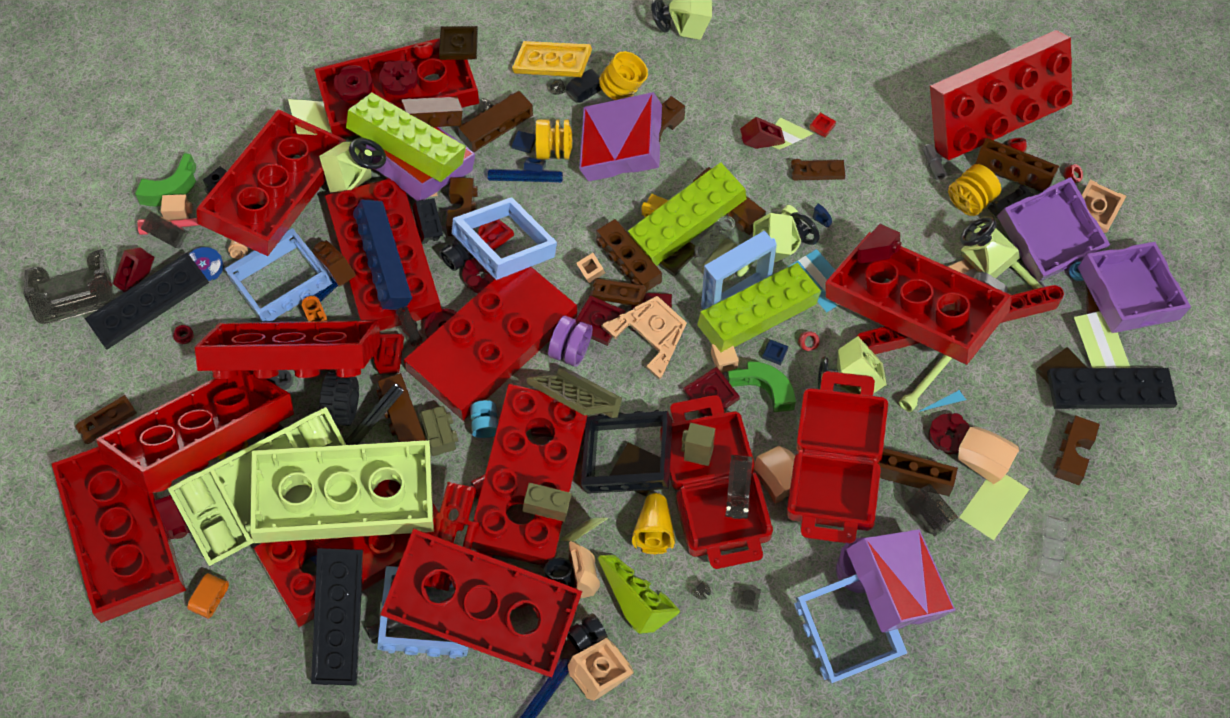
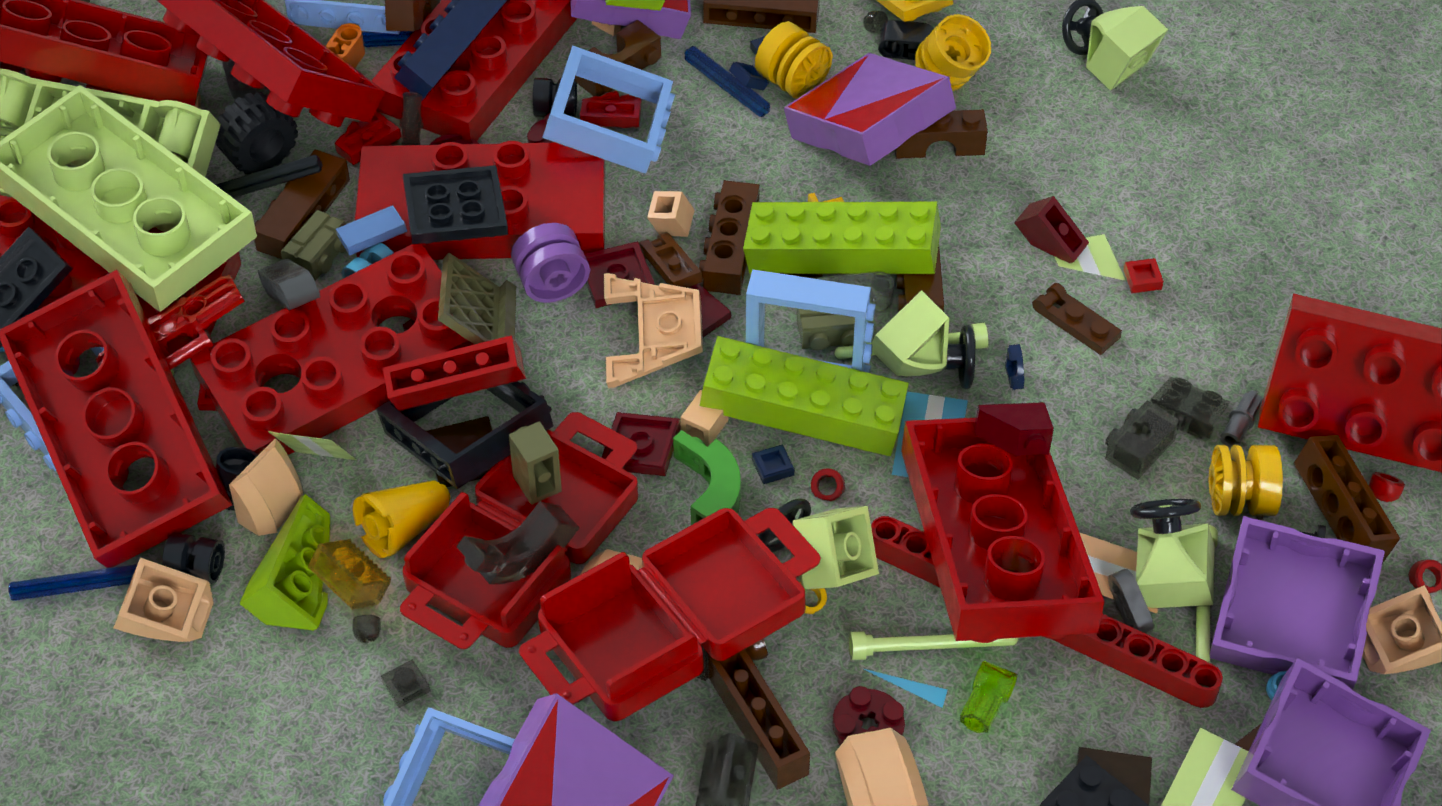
camera: 45 degrees right, 10 degrees down
(427, 220) = (559, 41): black hinge -> none
(469, 398) = (371, 230): none -> medium blue tile
(469, 461) = (288, 284): none -> dark grey beam
(504, 350) = (454, 204): none -> black plate
(546, 502) = (297, 376): olive brick -> none
(611, 434) = (454, 373): none -> red brick
(667, 572) = (349, 573): none -> clear yellow brick
(909, 172) = (1184, 399): none -> clear smoke hinge
(909, 205) = (1141, 439): none -> clear smoke brick
(980, 373) = (990, 689): none -> clear neon green piece

